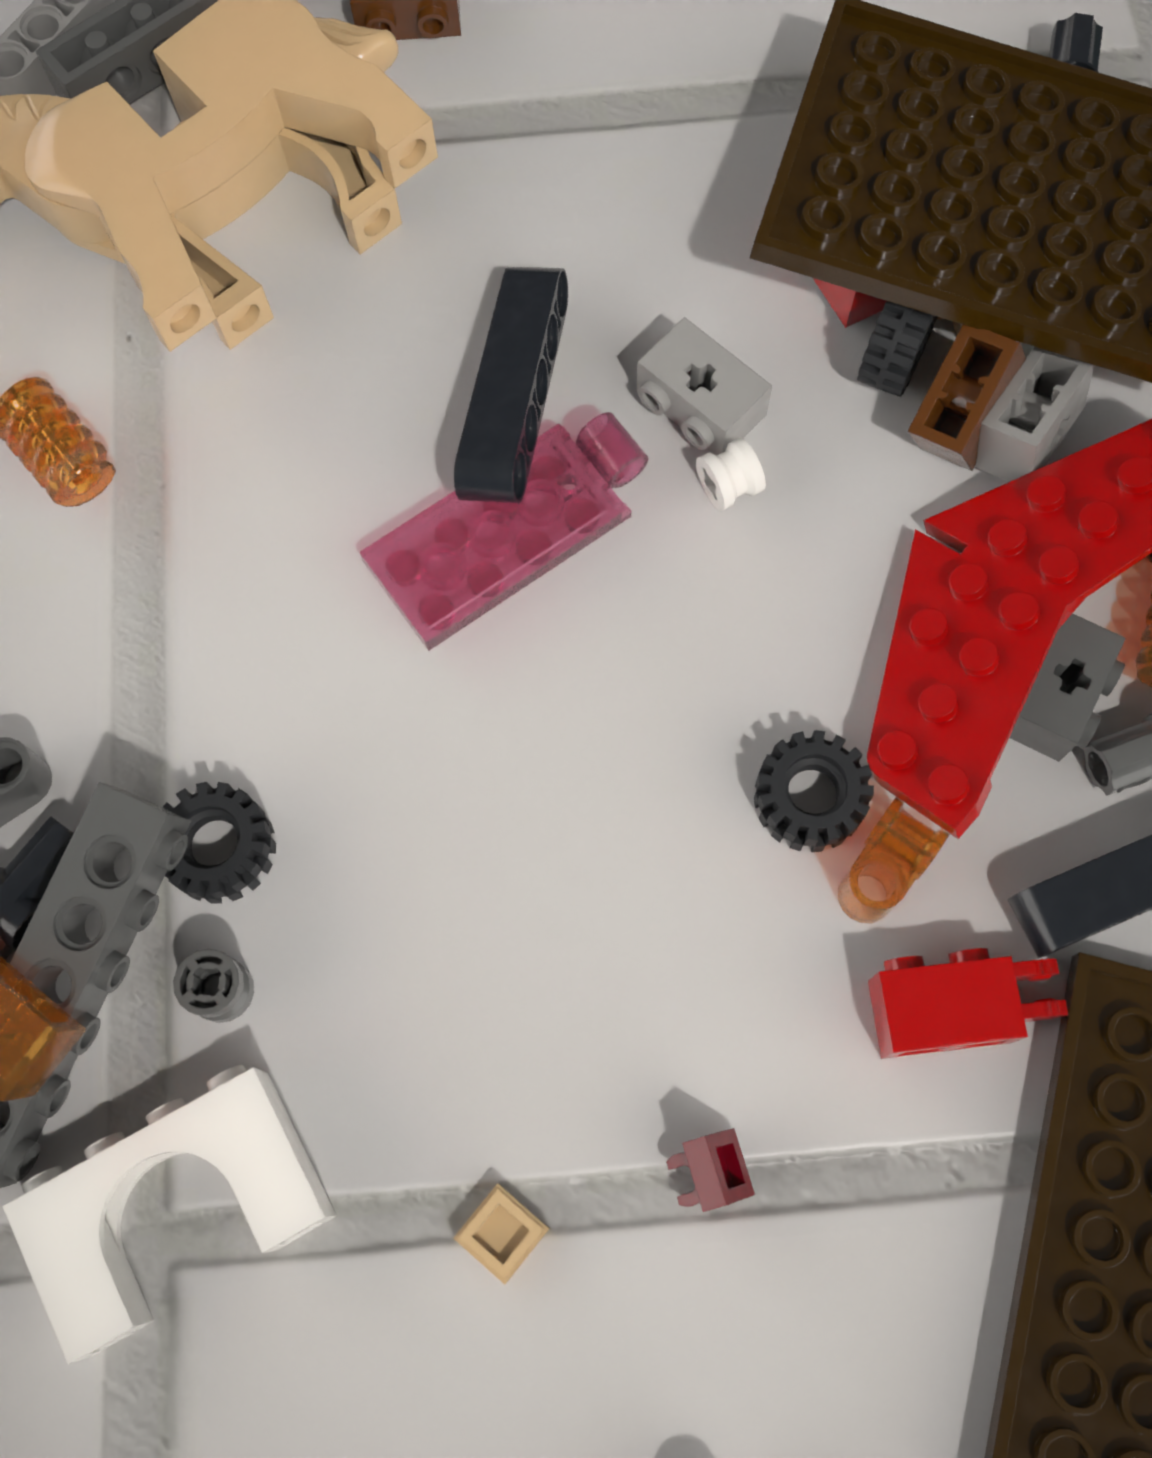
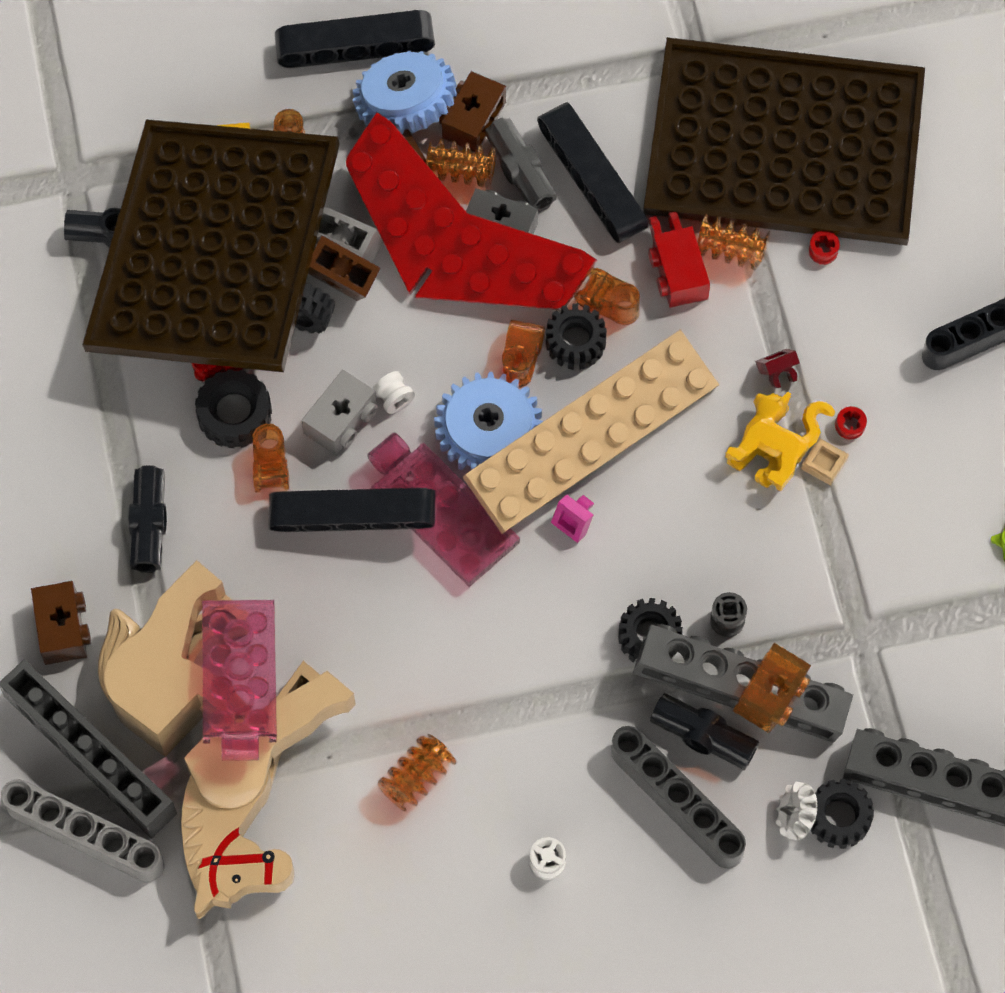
camera: 100 degrees left, 5 degrees down
(74, 1217) = (854, 659): white arch -> none
(200, 146) = (239, 675): none -> clear pink hinge
(453, 740) = (573, 516): none -> dark pink tile
(540, 1136) = (774, 443): none -> yellow animal
(554, 113) = (147, 519): none -> black piece
(573, 1325) = (850, 412): none -> red bush
(614, 795) = (590, 431): none -> tan plate
(629, 282) = (269, 465): none -> clear orange piece
(646, 661) = (465, 414): none -> light blue gear
(708, 277) = (232, 383): none -> black tyre
(795, 690) = (522, 350): none -> clear orange piece
(991, 1118) = (732, 243): none -> clear orange piece
(994, 1336) = (830, 240): none -> red bush

